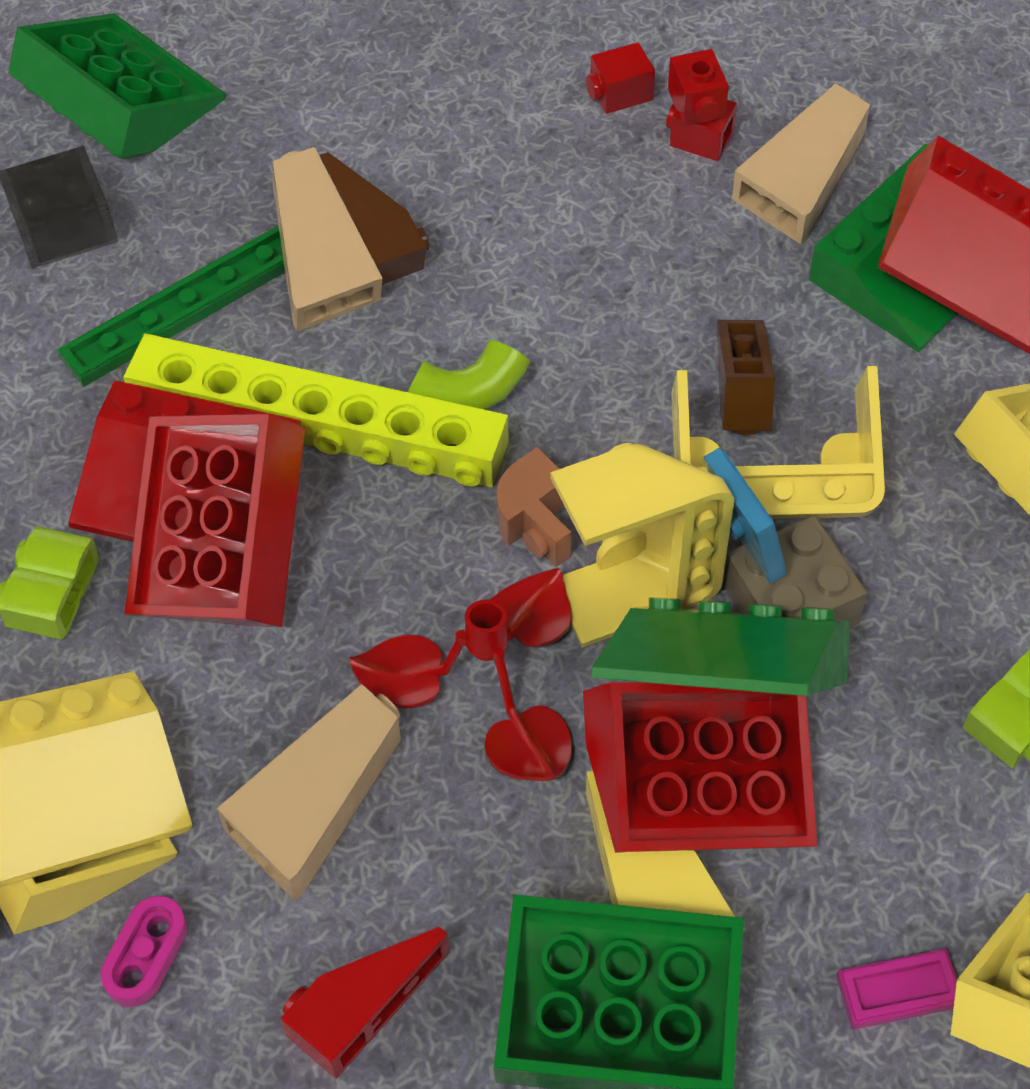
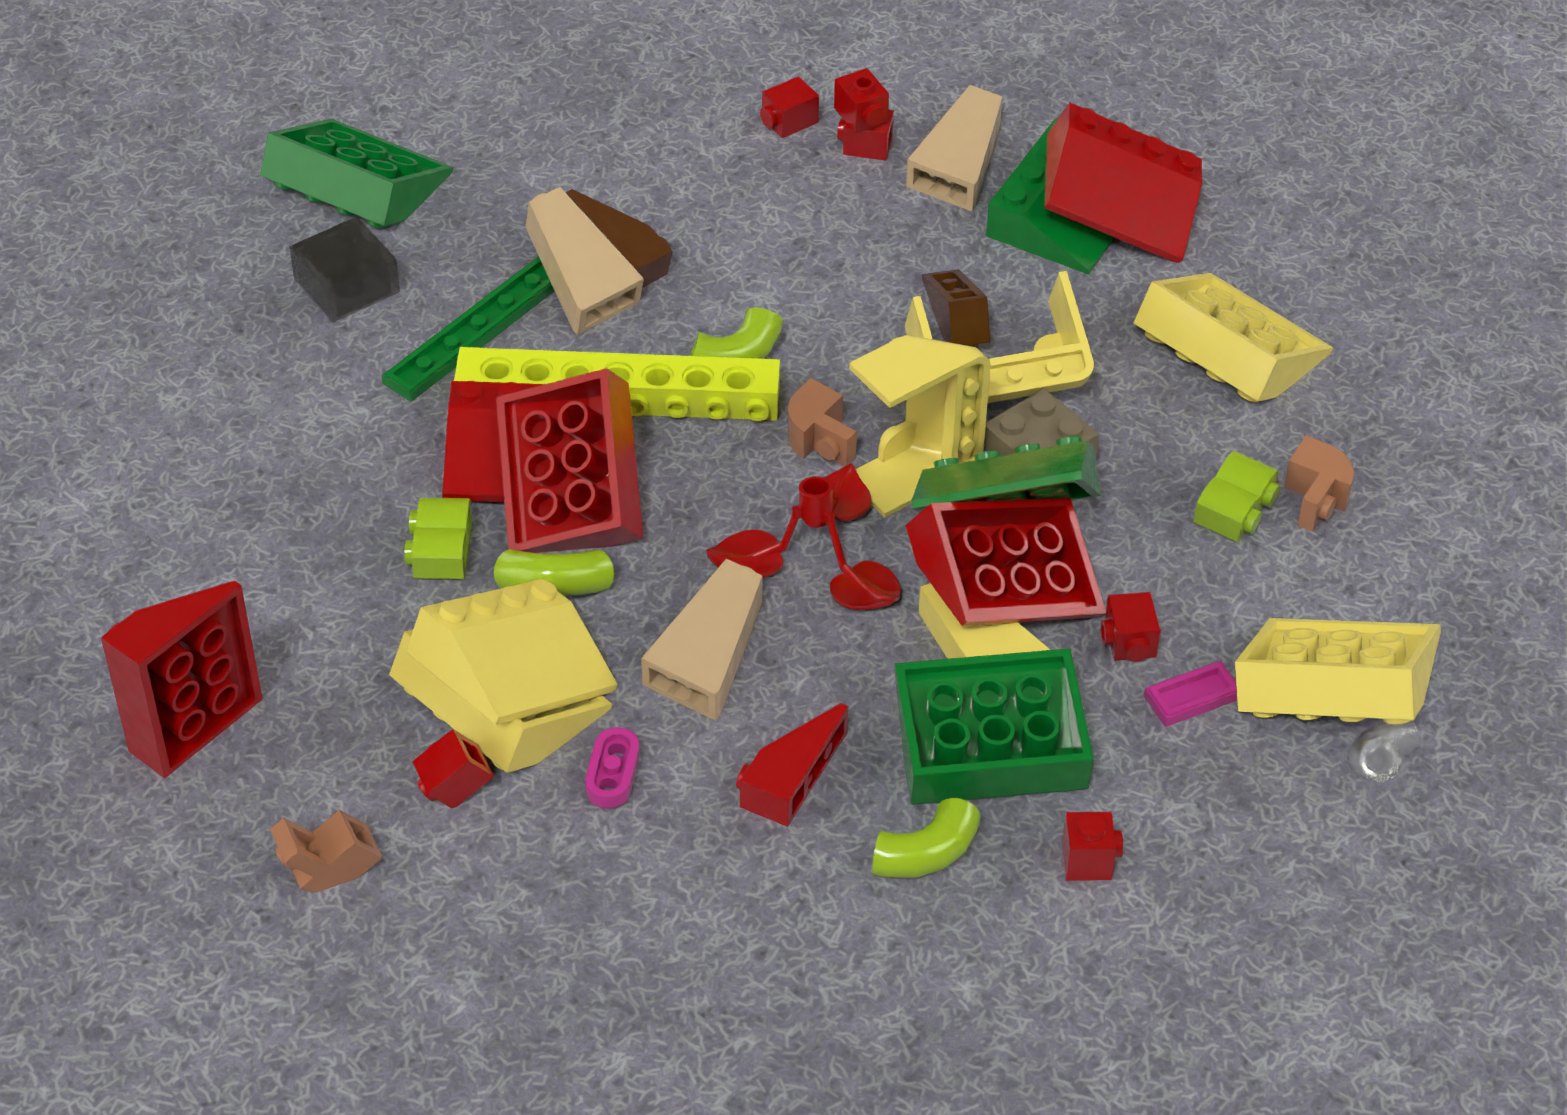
camera: 15 degrees left, 10 degrees down
(159, 661) = (570, 573): none -> lime cylinder
(749, 518) = (1007, 390): dark azure plate -> none
(841, 878) = (1131, 626): none -> red brick

